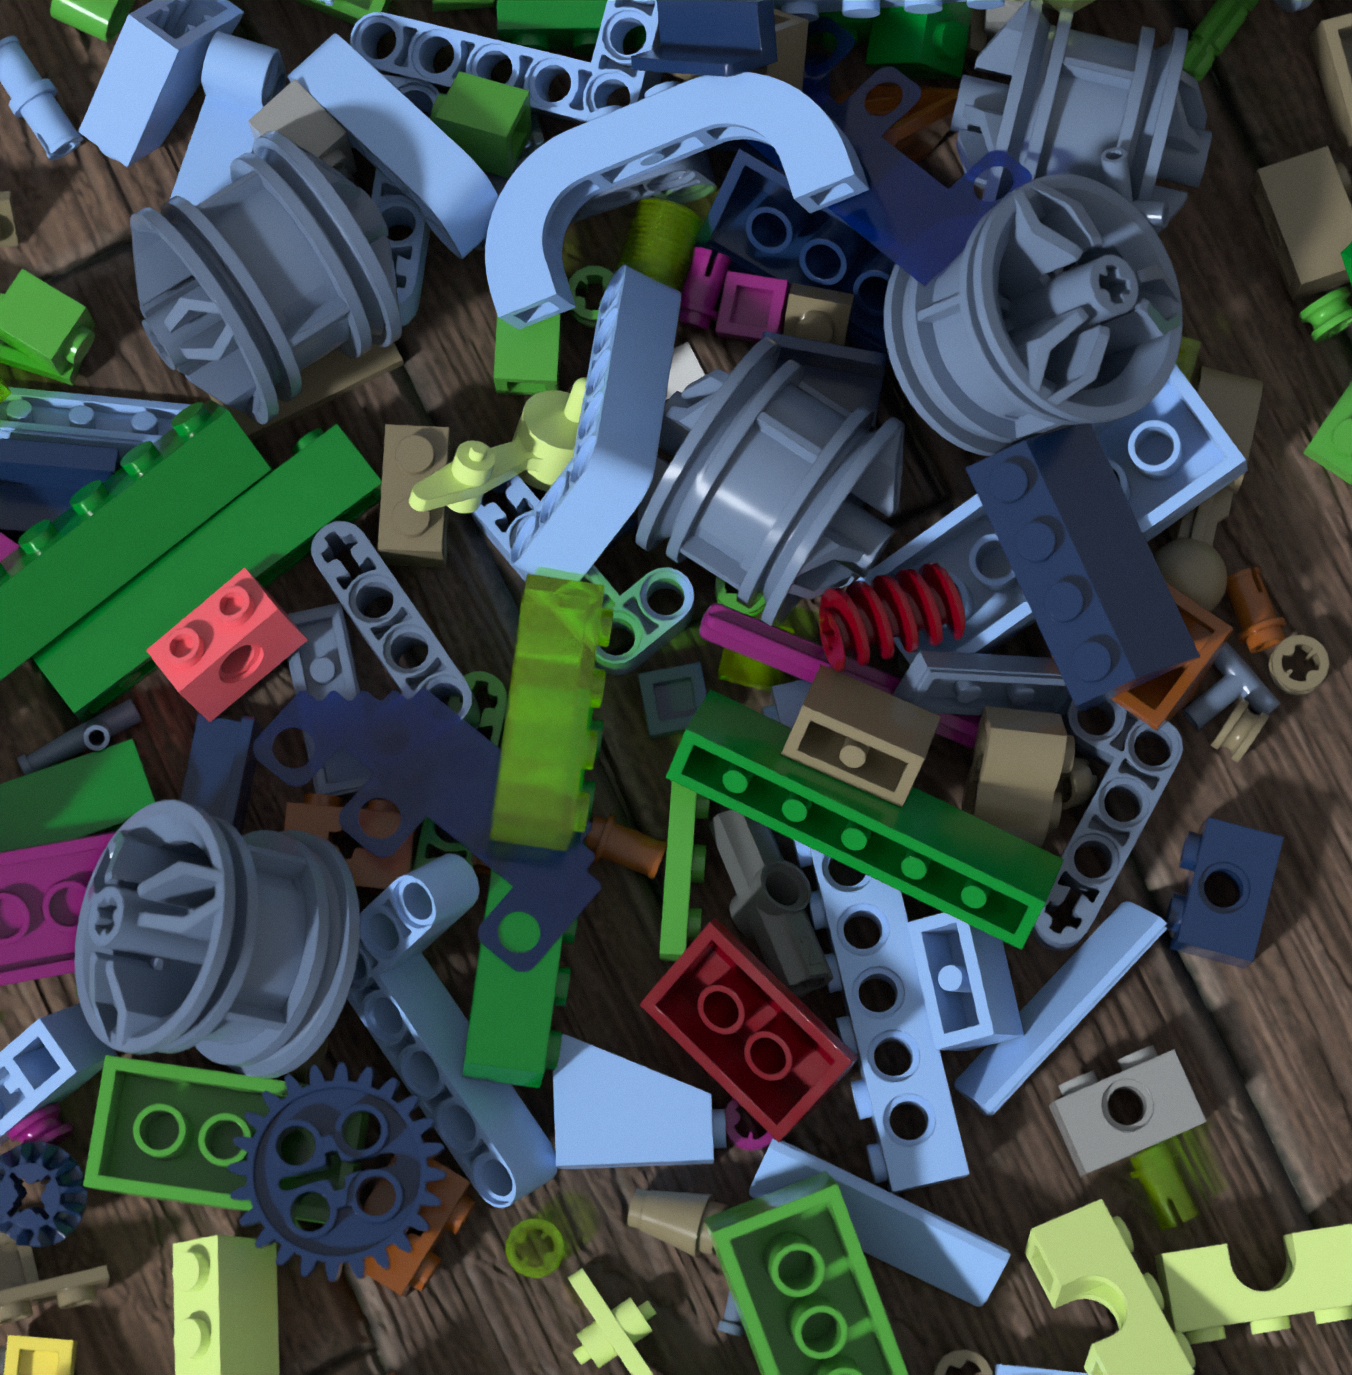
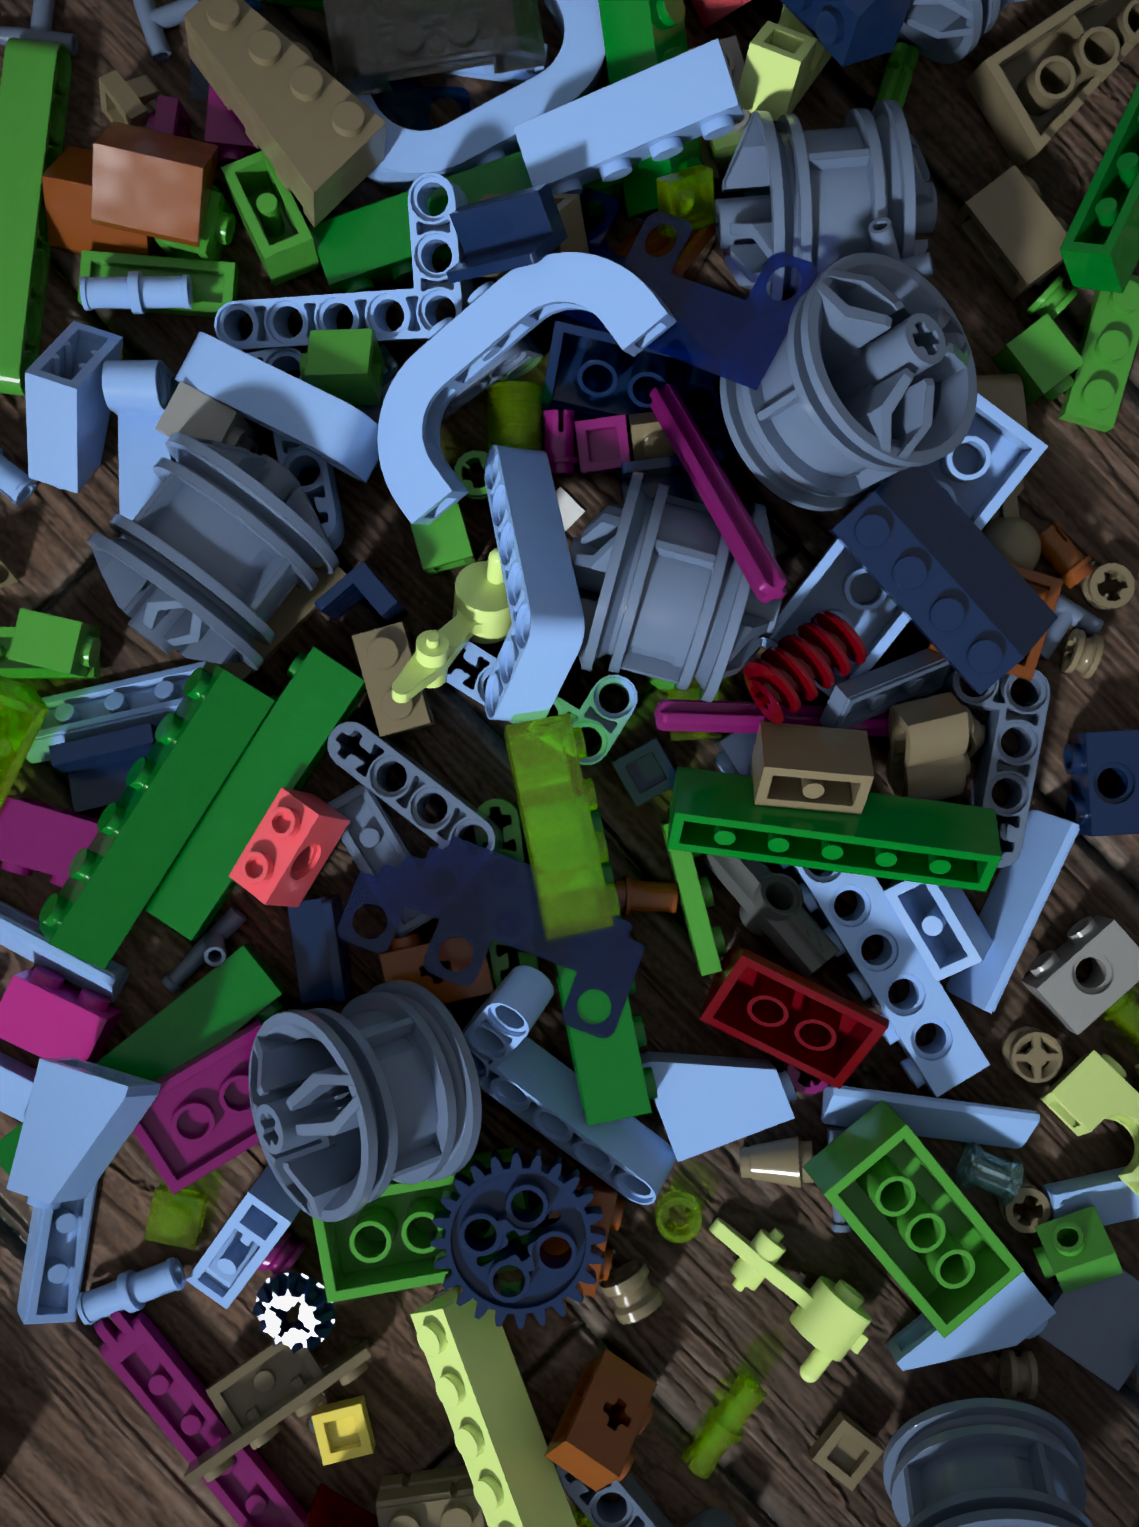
camera: 20 degrees left, 10 degrees up
(406, 374) = (355, 586): none -> dark blue panel
(447, 1315) = (632, 1291): none -> dark tan wheel
(850, 386) = (719, 495): none -> magenta axle
(931, 1318) = (990, 1173): none -> clear light blue bush
(932, 62) = (687, 196): none -> clear neon green plate
(1042, 1182) = (1039, 1062): none -> dark tan wheel
(1294, 377) = (1041, 359): none -> bright green brick

